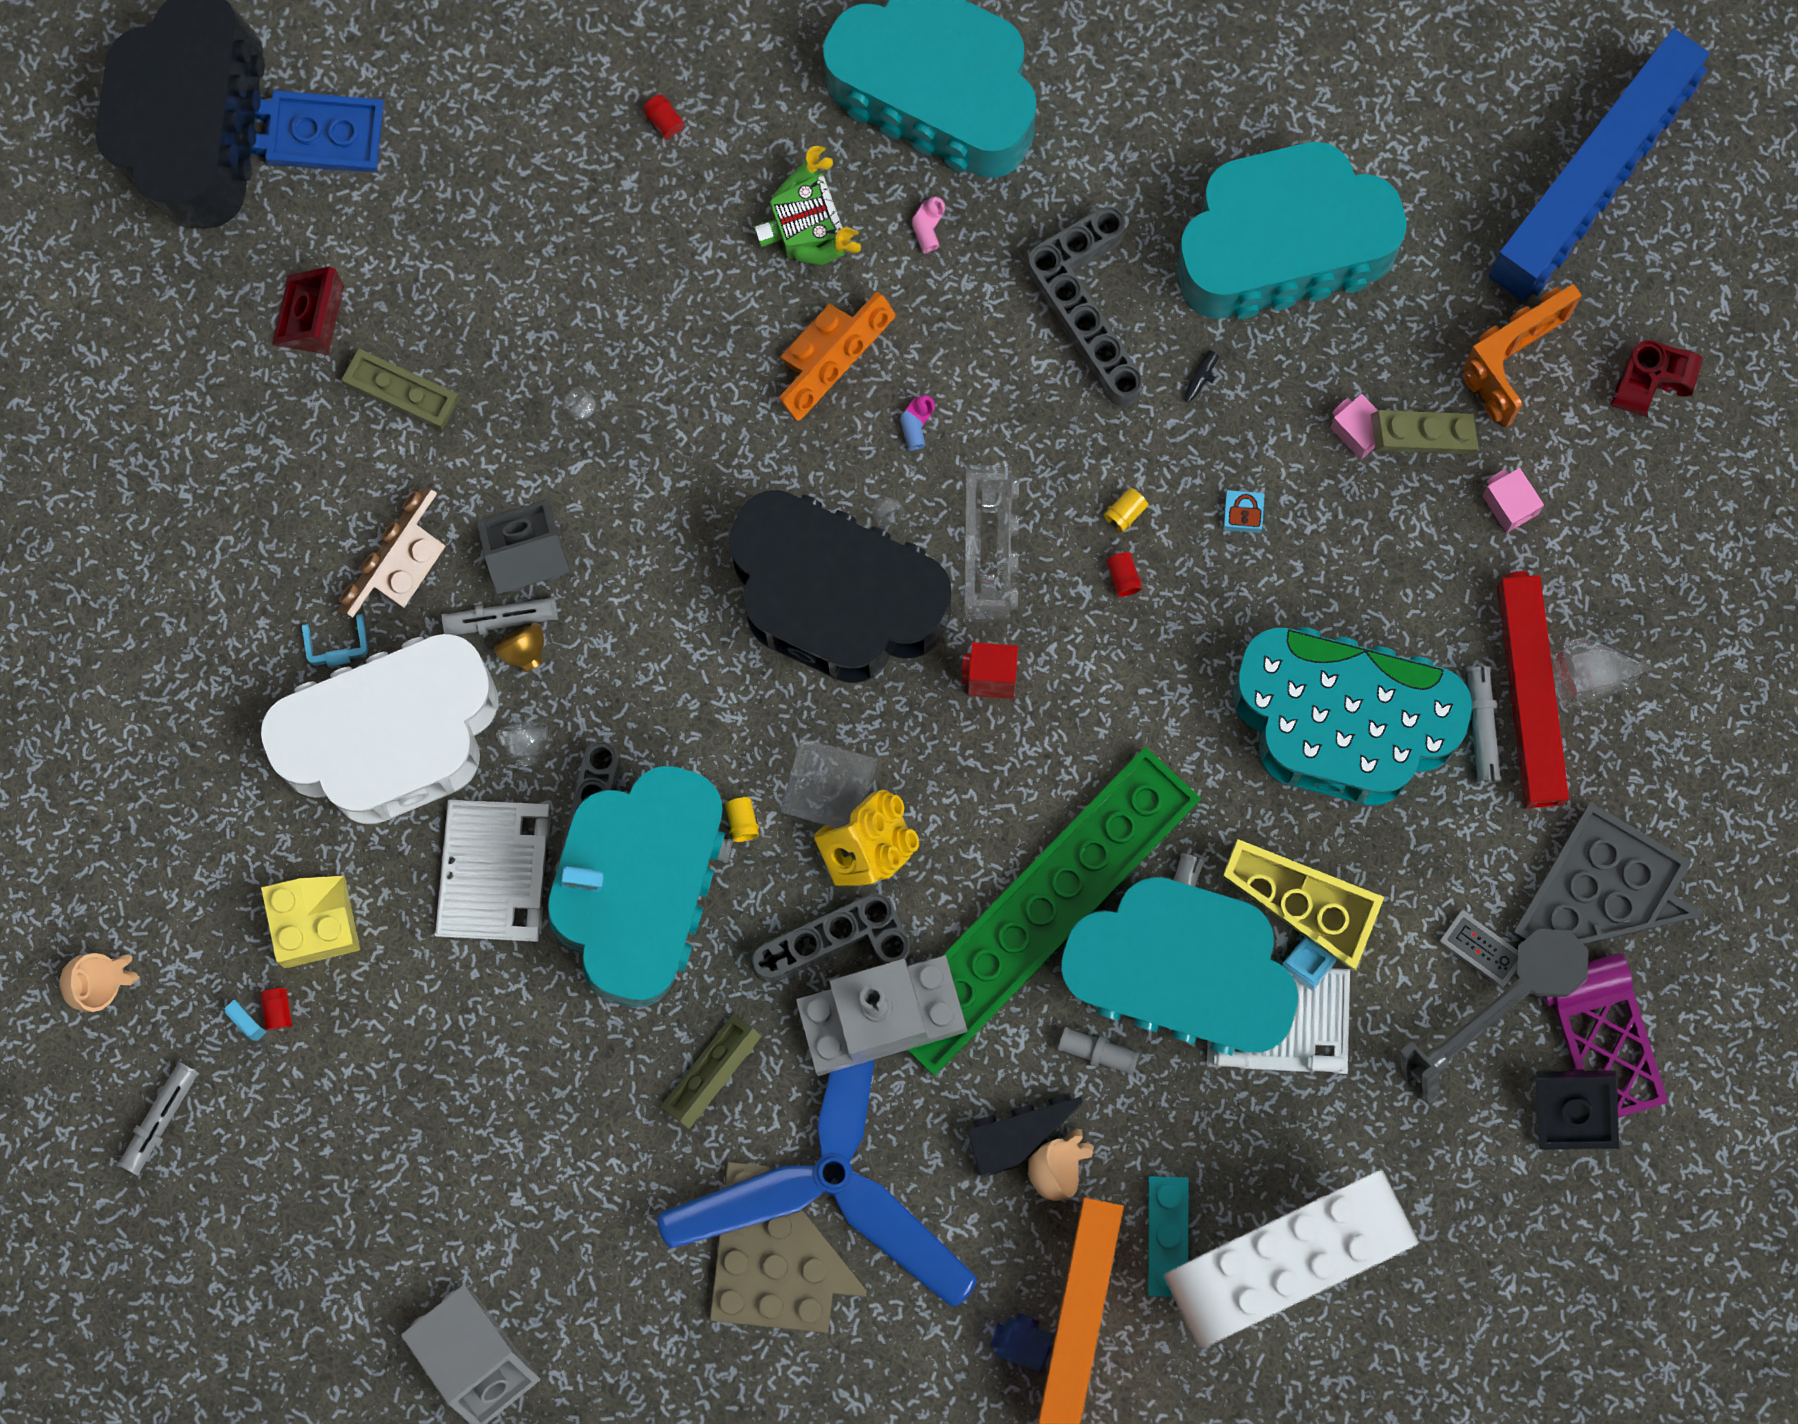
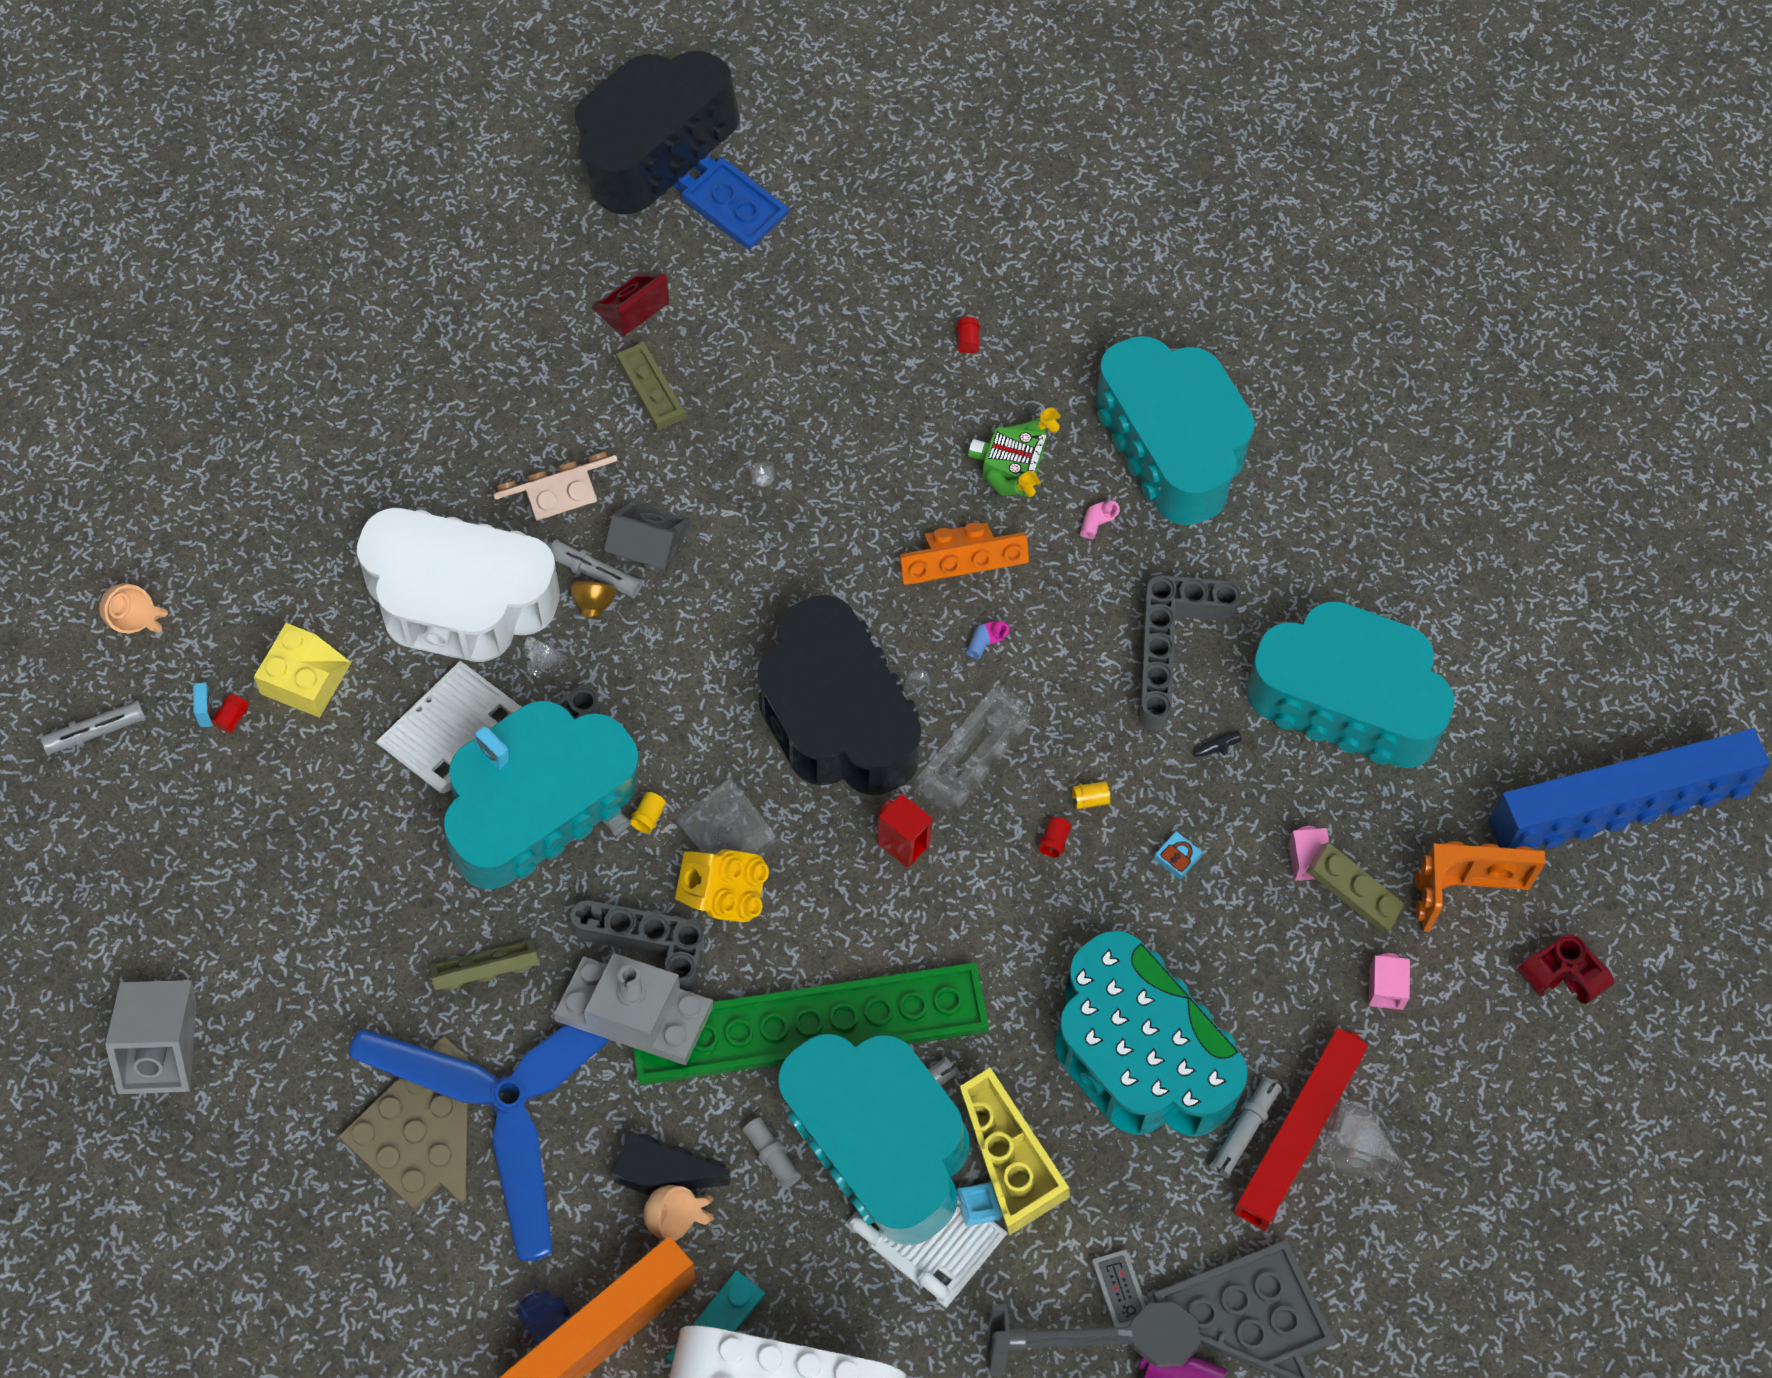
camera: 30 degrees right, 15 degrees down
(340, 656) = (455, 500): medium azure piece -> none

